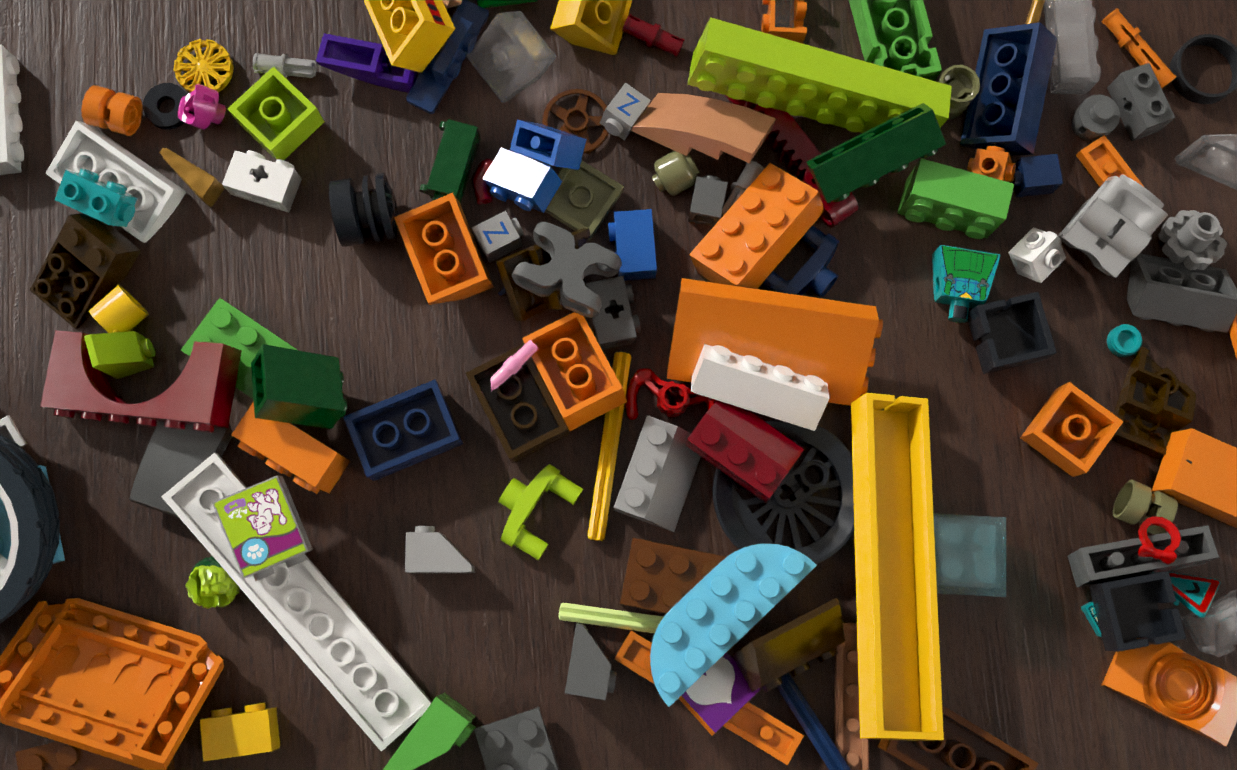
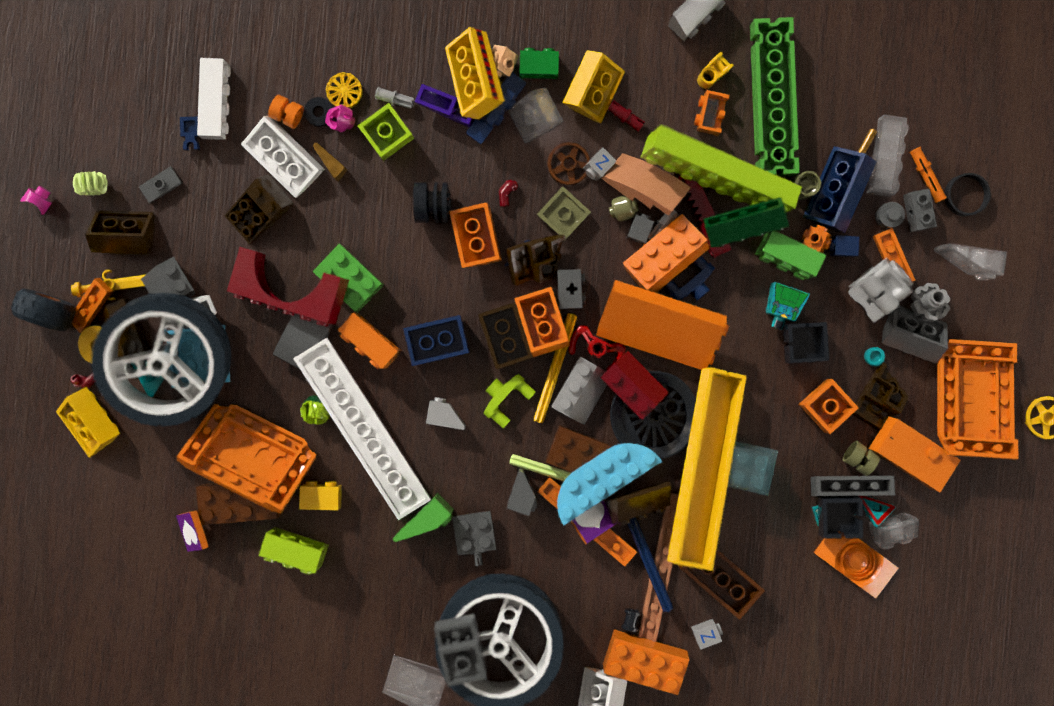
camera: 10 degrees right, 10 degrees up
(95, 198) = (272, 169): teal brick -> none
(118, 311) = (277, 240): yellow piece -> none
(120, 353) = (276, 266): lime slope -> none
(263, 528) = (350, 387): brick -> none
(275, 191) = (361, 166): white brick -> none
(297, 387) = (379, 307): dark green brick -> none
(452, 160) = (488, 179): dark green brick -> none
(498, 236) = (510, 230): light grey brick -> none
(513, 364) = (506, 314): bright pink piece -> none
(522, 180) = (529, 198): brick -> none
(548, 144) = (549, 180): blue brick -> none
(567, 269) = (548, 262): dark grey piece -> none
(634, 243) = (590, 250): blue brick -> none
(760, 386) = (649, 351): white brick -> none
(1037, 254) = (833, 296): white brick -> none
(1147, 549) = (854, 483): red piece -> none

